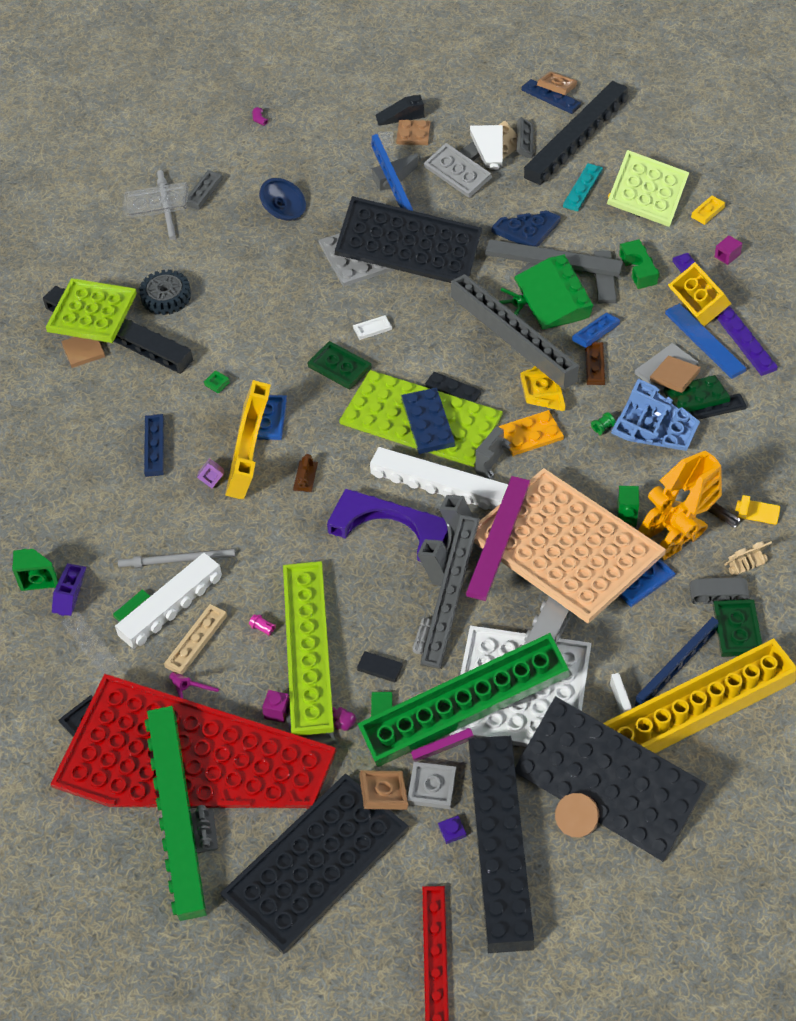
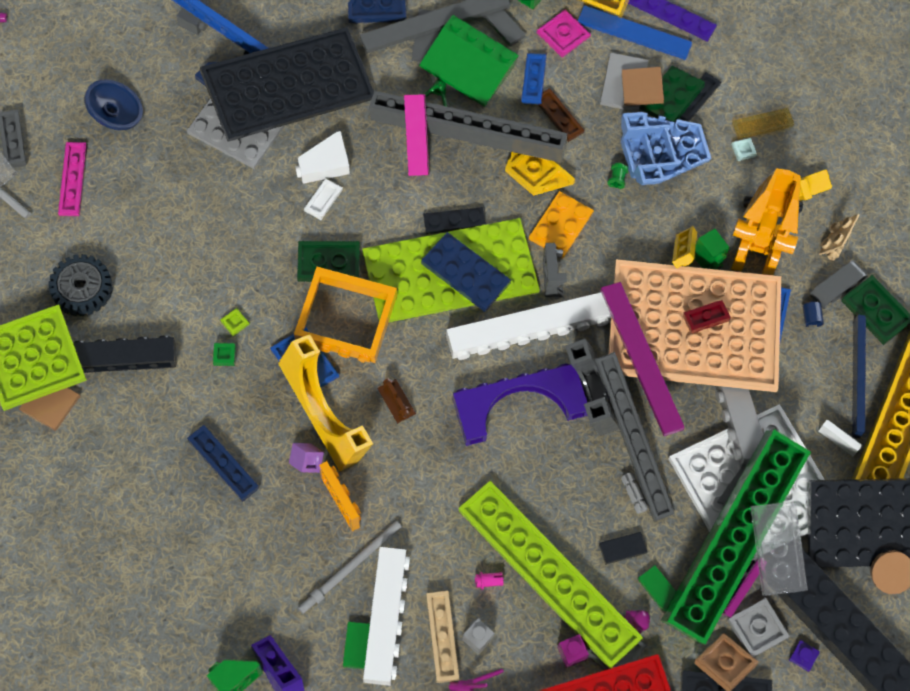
camera: 45 degrees left, 15 degrees up
(206, 505) = (340, 495): none -> light orange plate
(218, 653) = (478, 636): none -> light grey brick
(219, 231) = (72, 179): none -> dark pink tile
(242, 367) = (234, 322): none -> lime tile
(330, 422) = (356, 285): none -> light orange window
(394, 302) = (324, 160): none -> white slope
(469, 315) = (416, 134): none -> dark pink tile
(486, 725) = (779, 548): none -> clear tile
(575, 538) = (706, 316): none -> dark red plate
(602, 492) = (684, 247): none -> yellow plate
(647, 314) = (563, 33): none -> dark pink tile
(678, 599) = (813, 314): none -> dark blue beam
(726, 459) = (744, 149): none -> light aqua tile
(757, 451) = (763, 123): none -> clear yellow tile

